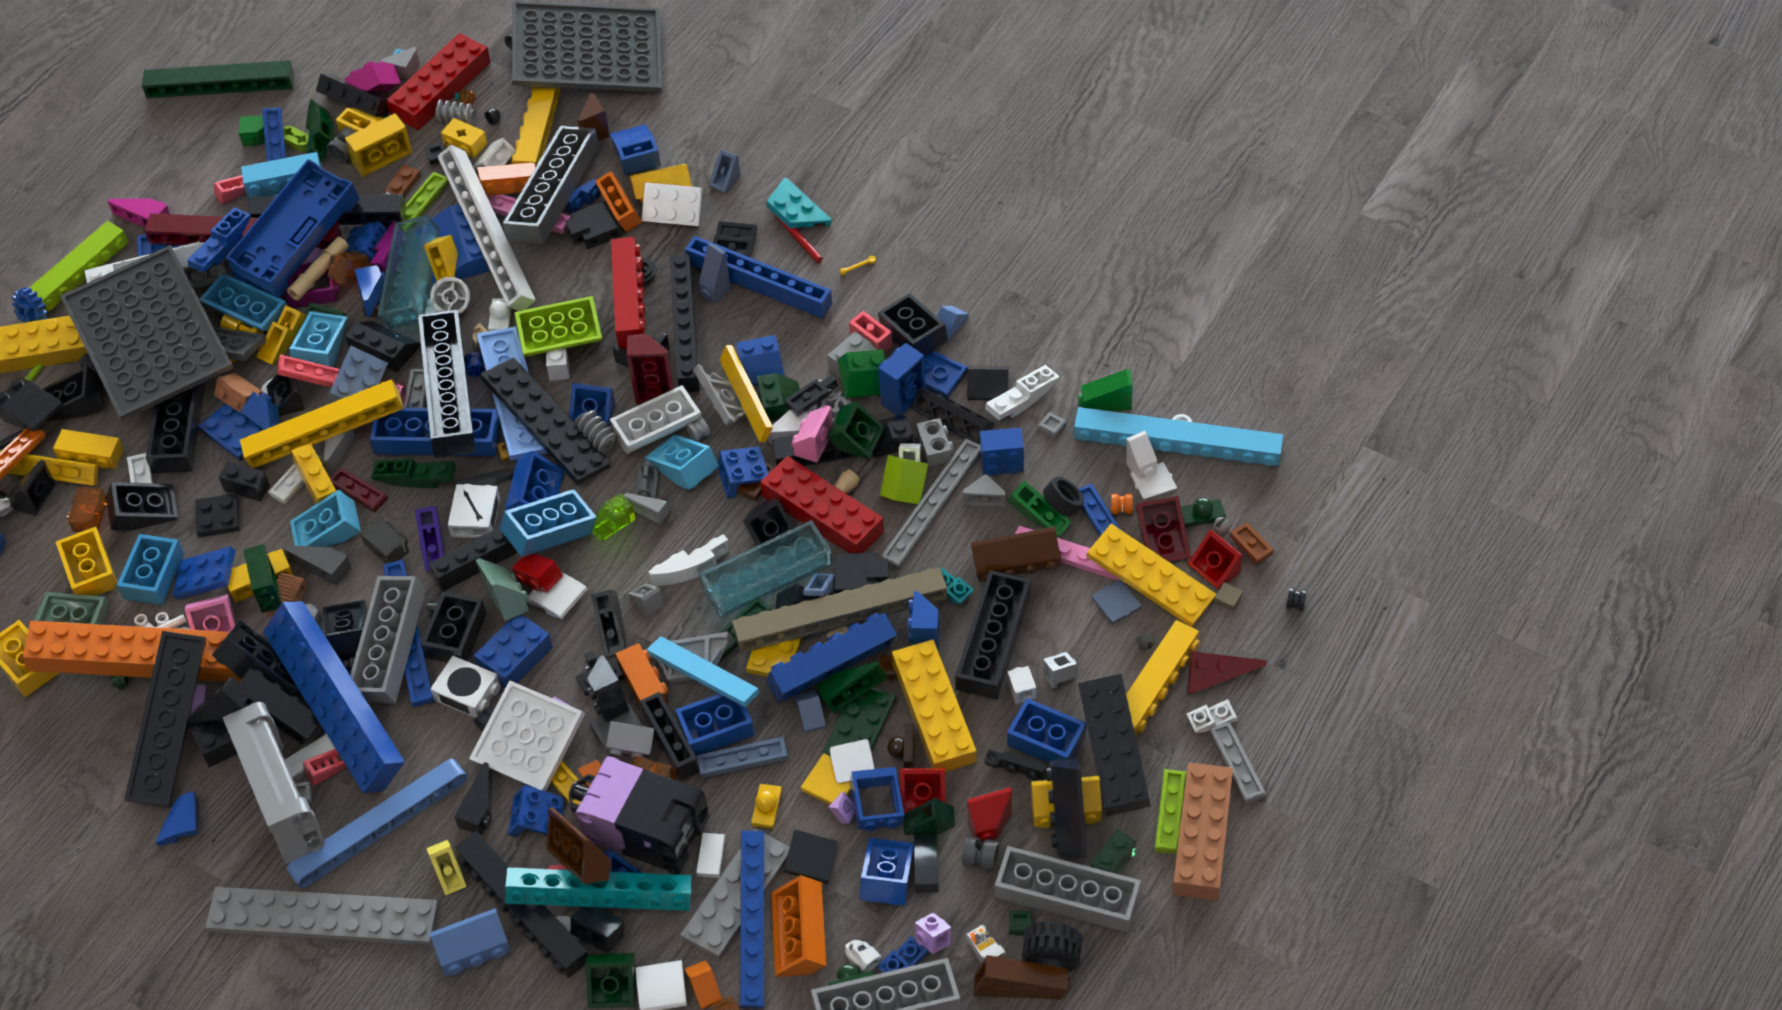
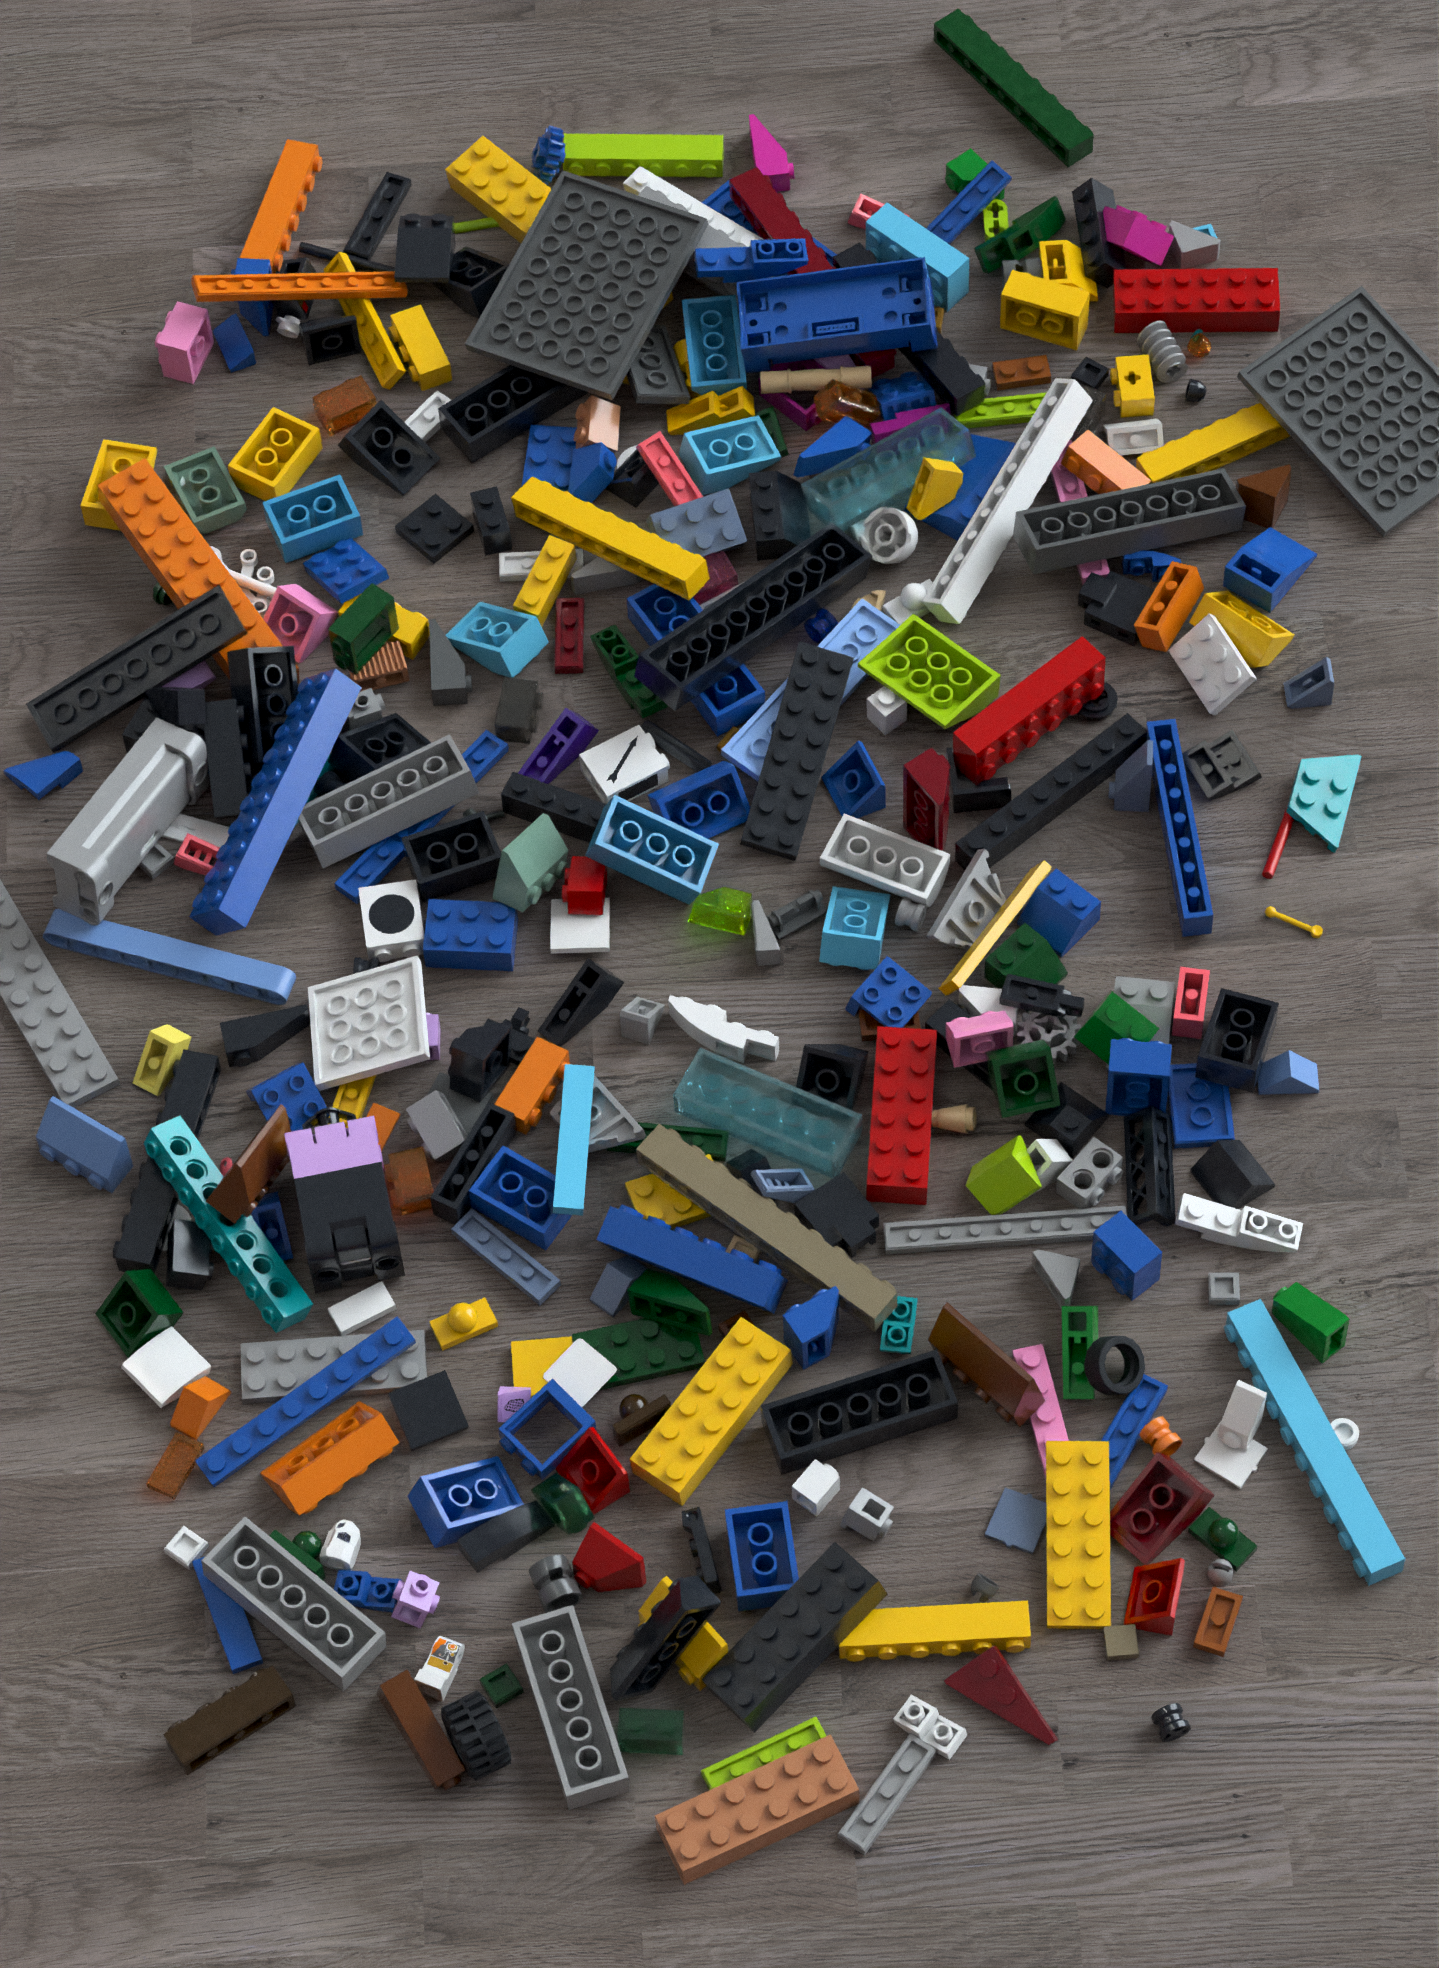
camera: 55 degrees right, 5 degrees up
(596, 431) = (822, 811): light grey piece -> none

